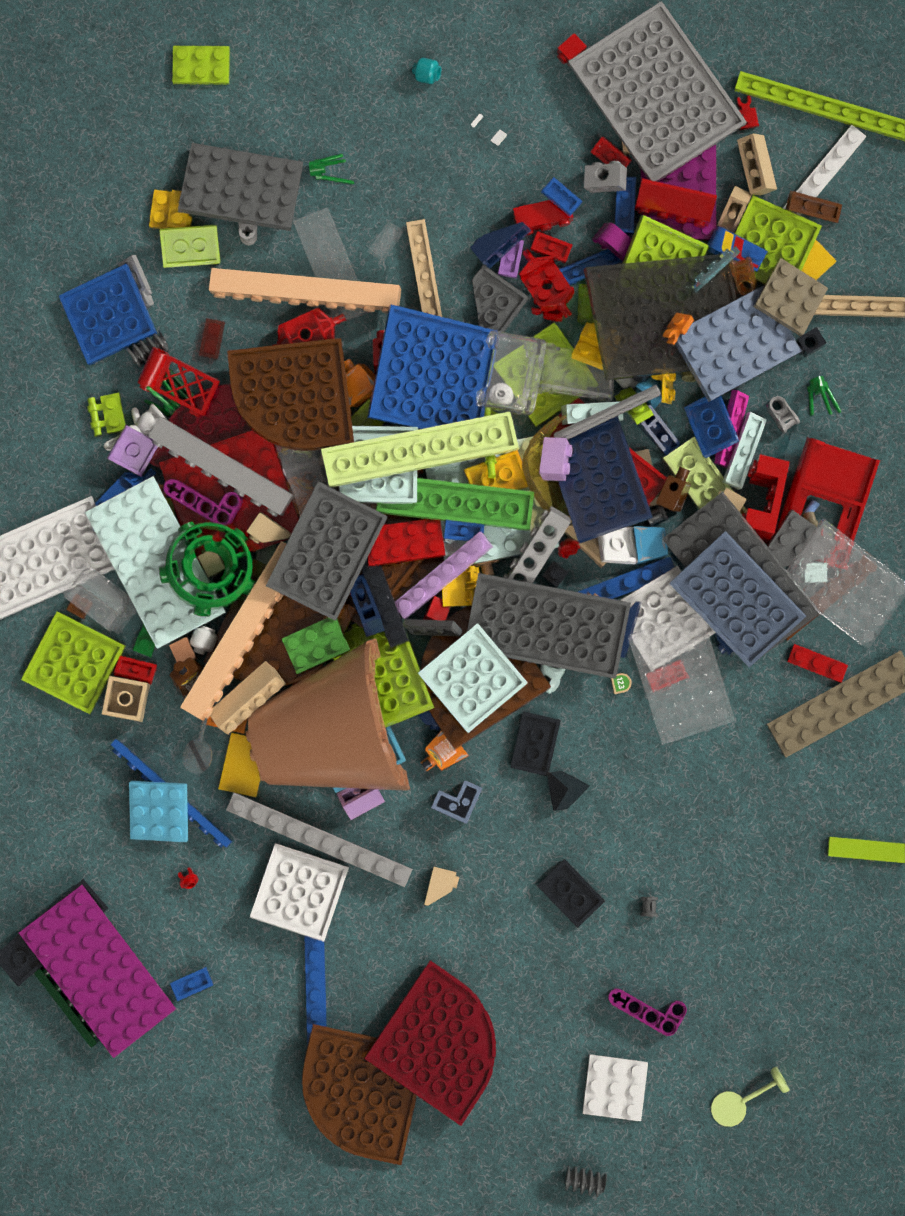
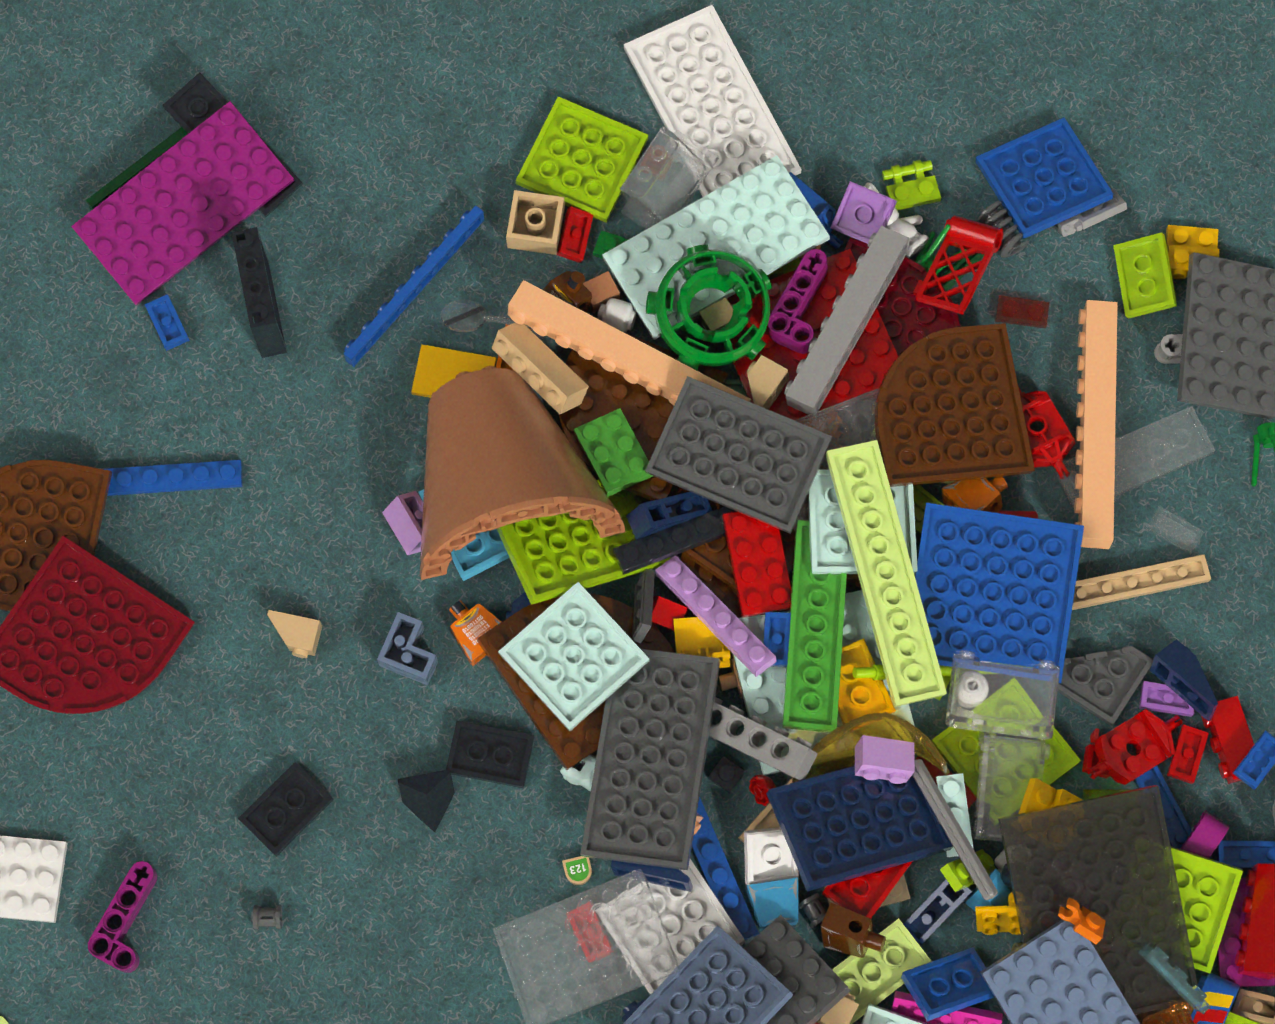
camera: 90 degrees right, 10 degrees down
(158, 811) = (389, 268): medium azure plate -> none
(178, 910) = (259, 292): none -> black window
(188, 881) = (300, 312): red plate -> none
(299, 892) = (285, 450): white plate -> none
(319, 839) = (354, 474): light grey brick -> none

